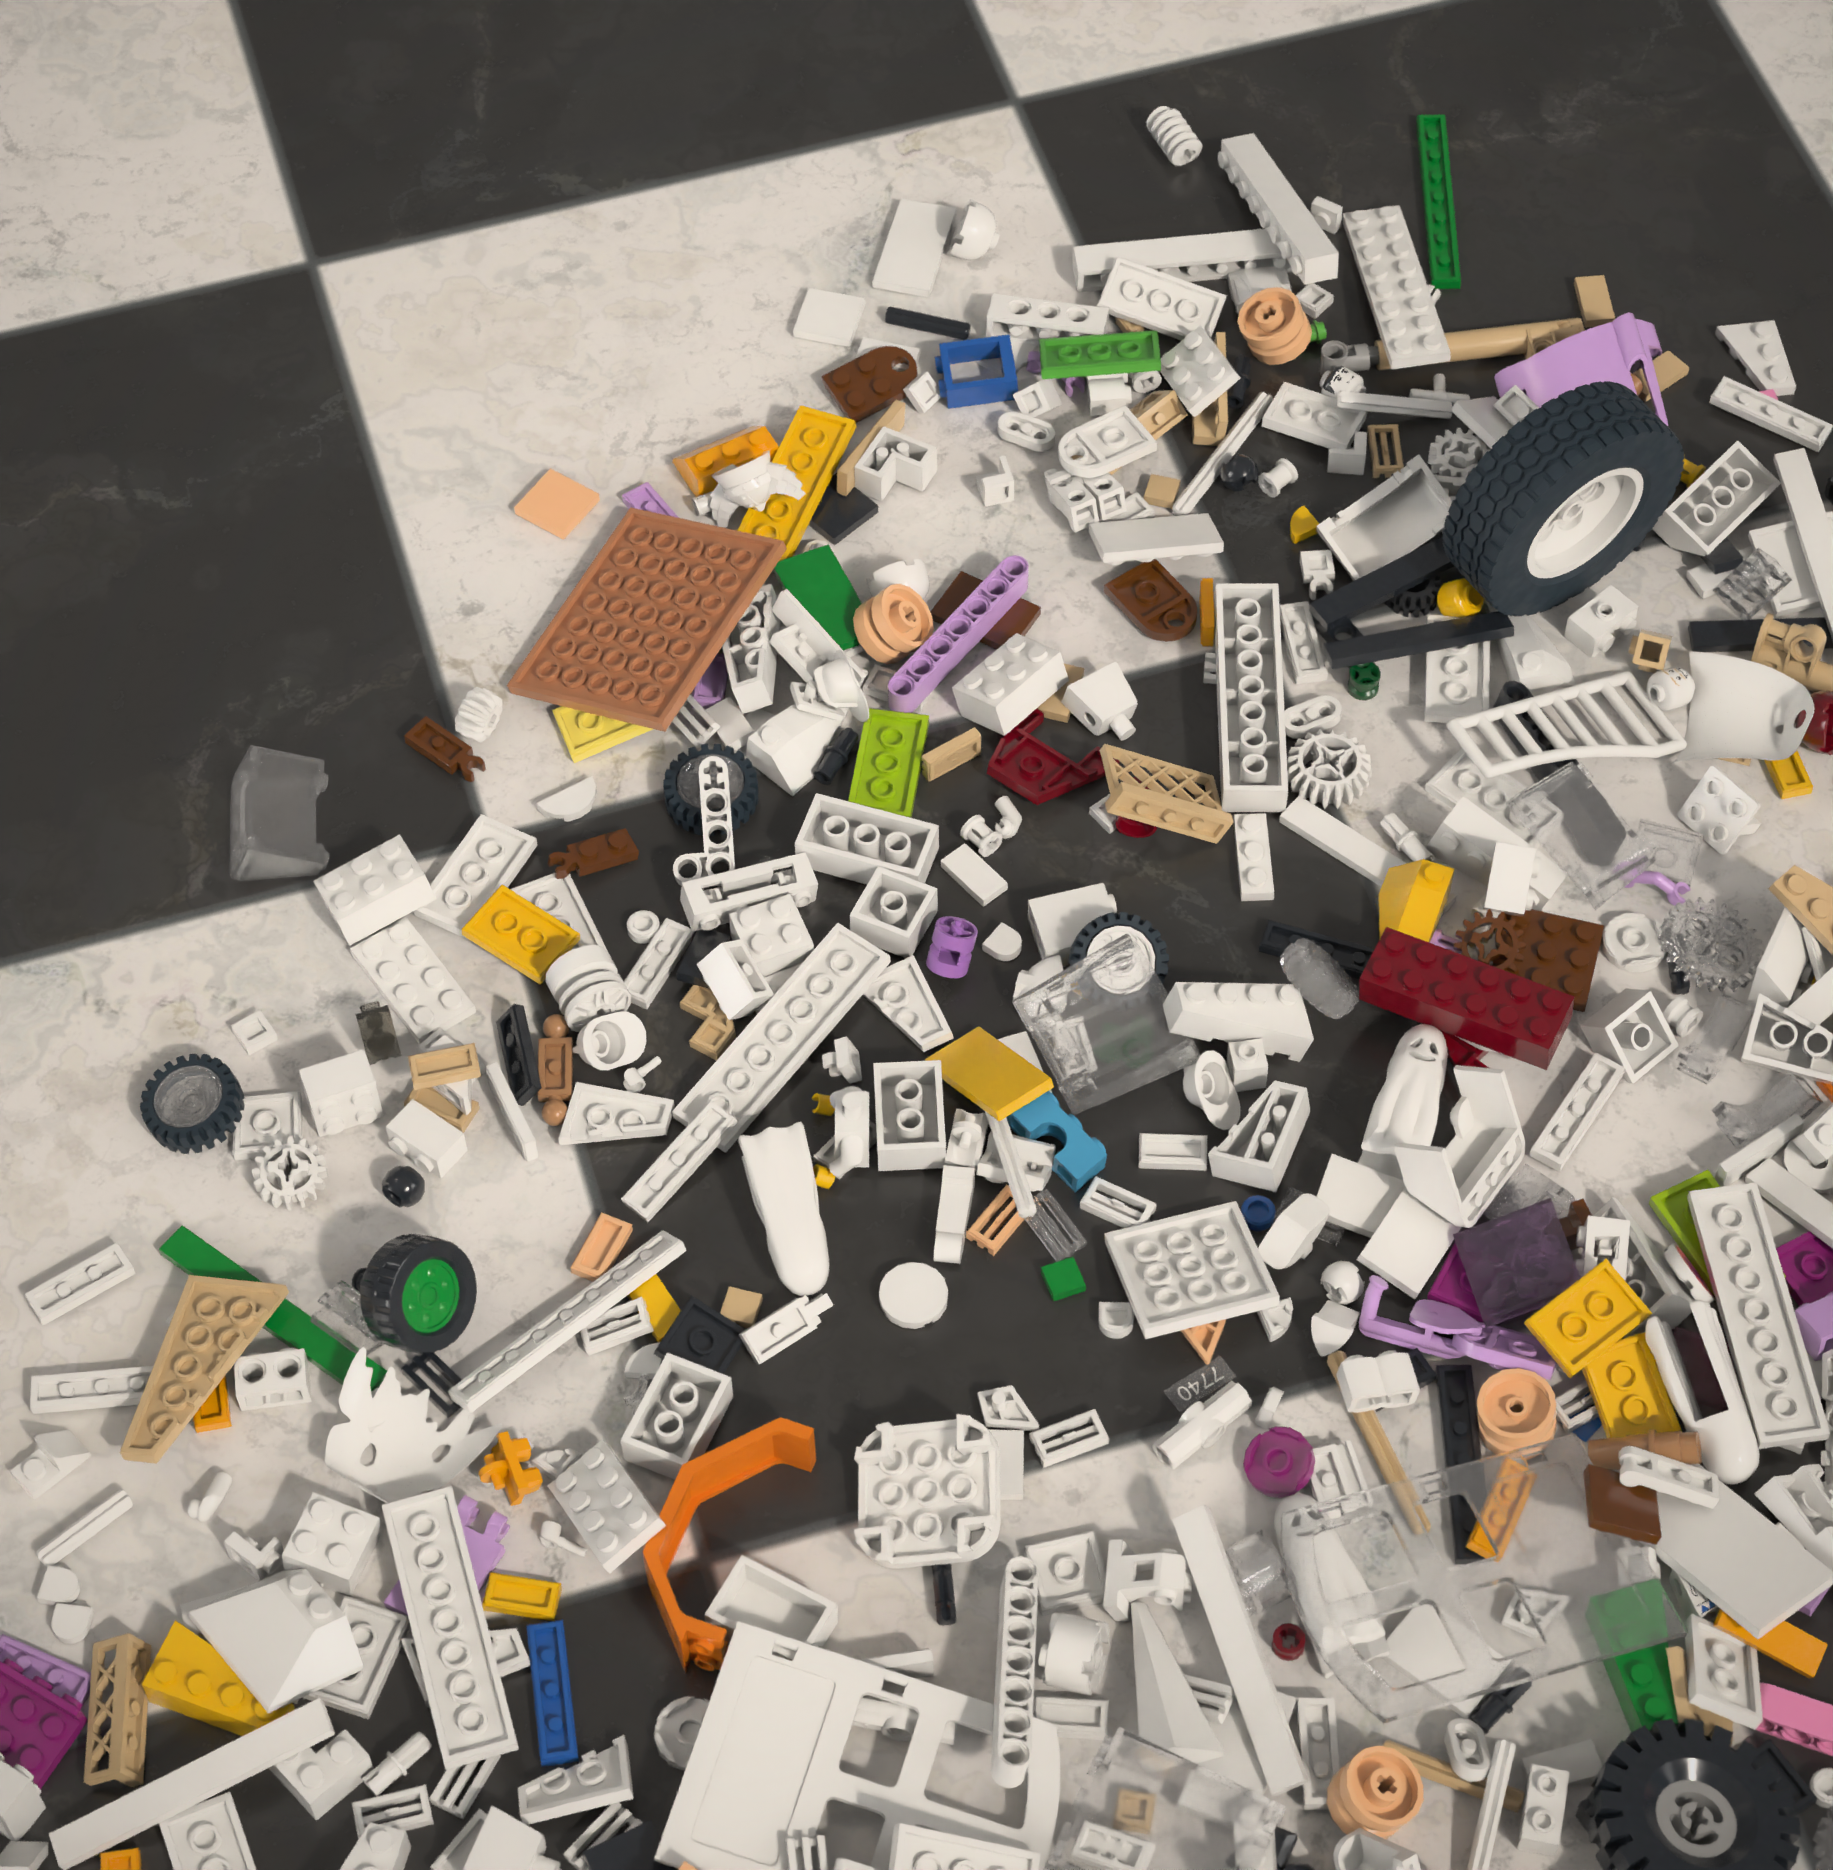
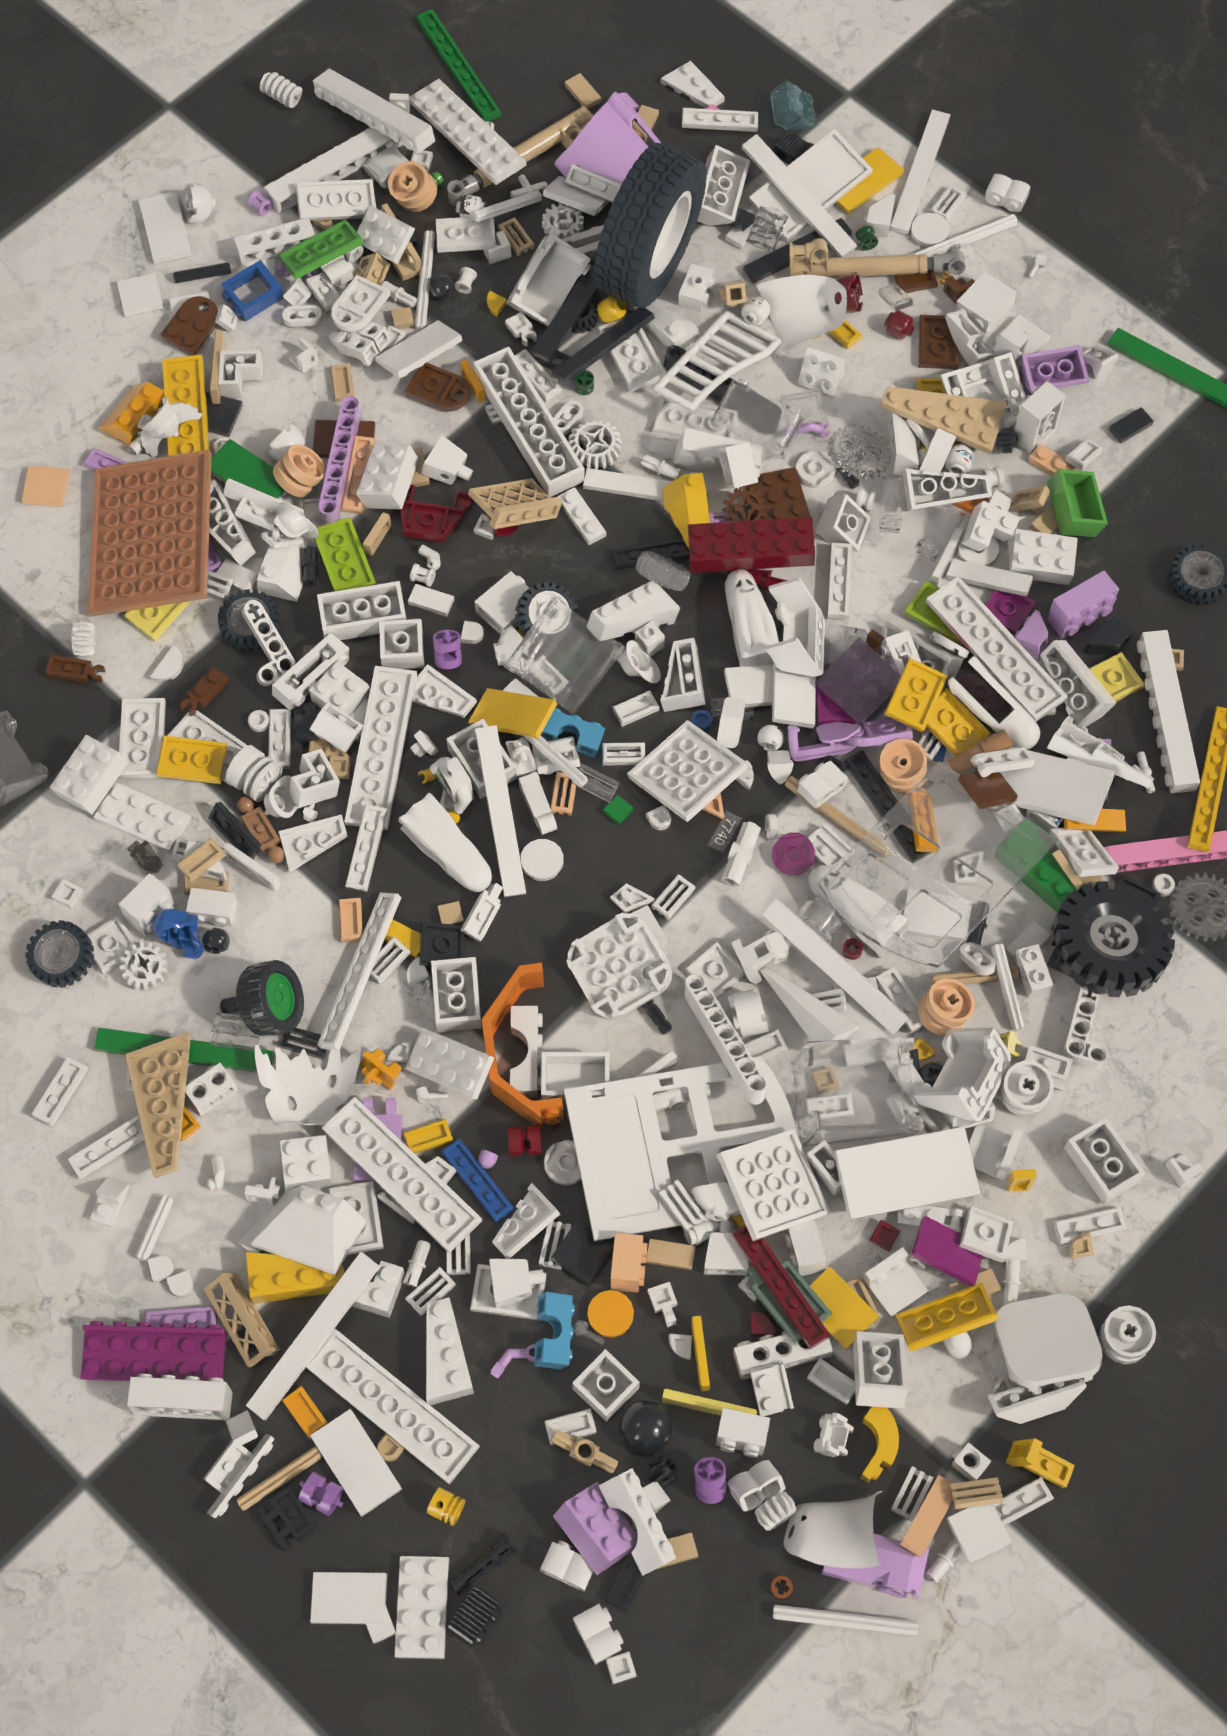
camera: 30 degrees left, 10 degrees up
(362, 1147) = (179, 930): none -> blue head
(582, 1669) = (487, 1159): none -> lavender hinge
(635, 1667) = (516, 1140): none -> dark red wheel
(662, 1041) = (316, 780): none -> white brick
(750, 1508) = (525, 1026): none -> white arch
(888, 1198) = (500, 811): none -> white tile
(994, 636) = (360, 454): none -> light nougat tile
(1030, 537) = (342, 381): none -> tan tile
(1057, 266) = (260, 202): none -> lavender bush
(1073, 407) = (323, 290): none -> white plate
(1174, 458) = (399, 295): none -> white axle
(1309, 1843) = (924, 1049): none -> yellow tile

